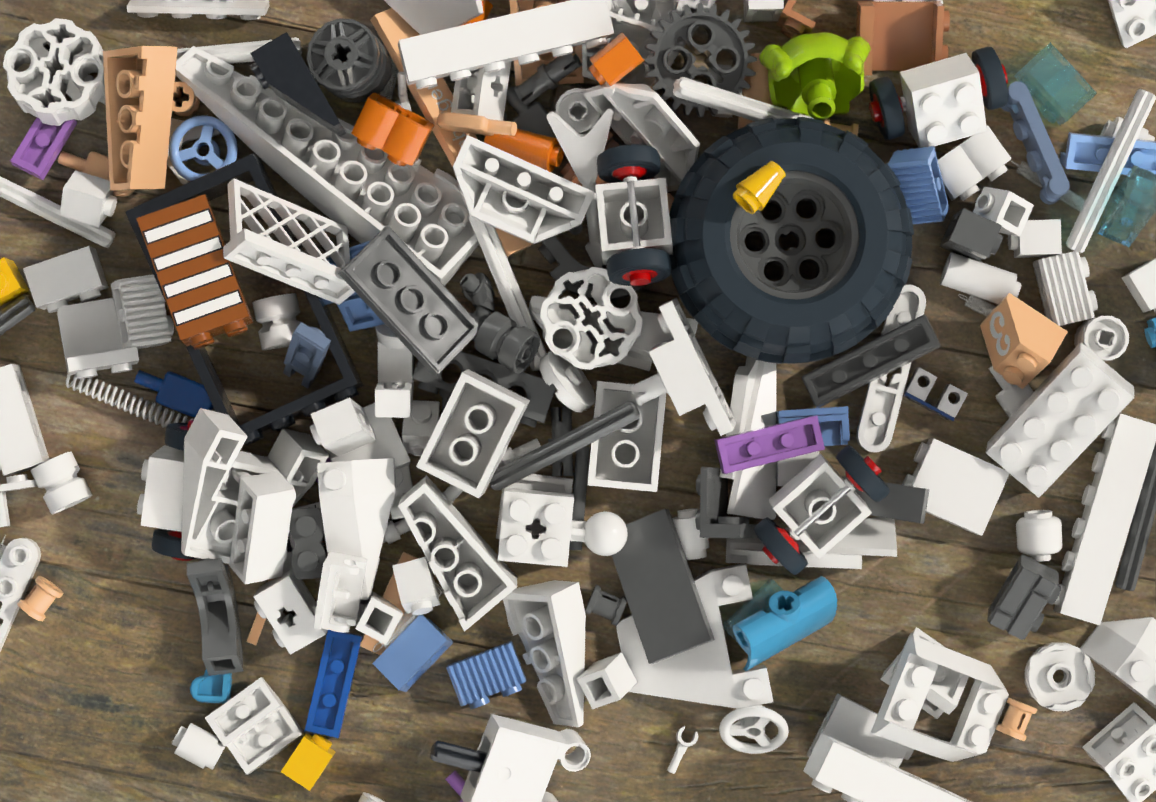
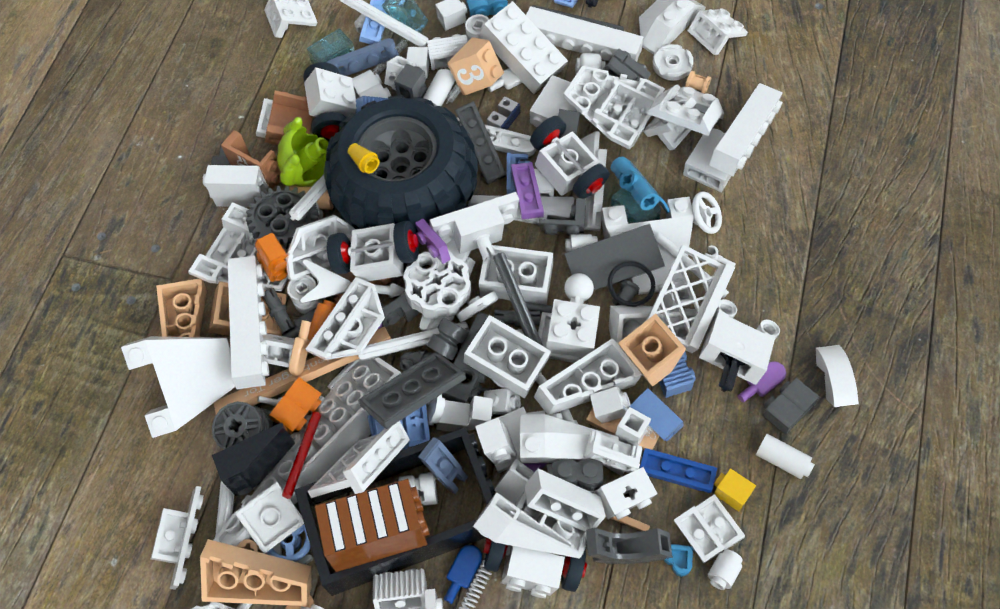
camera: 85 degrees left, 25 degrees down
(221, 123) = (270, 517): none -> white tile
(313, 152) = (301, 455): none -> red bar
(492, 644) = (653, 349): none -> light nougat slope
(580, 729) = (709, 302): none -> white fence
(612, 645) = (626, 303): none -> black tyre
(634, 314) = (434, 243): none -> medium lavender plate
(658, 704) = (671, 248): none -> white piece
(947, 577) = (613, 103): none -> white wedge

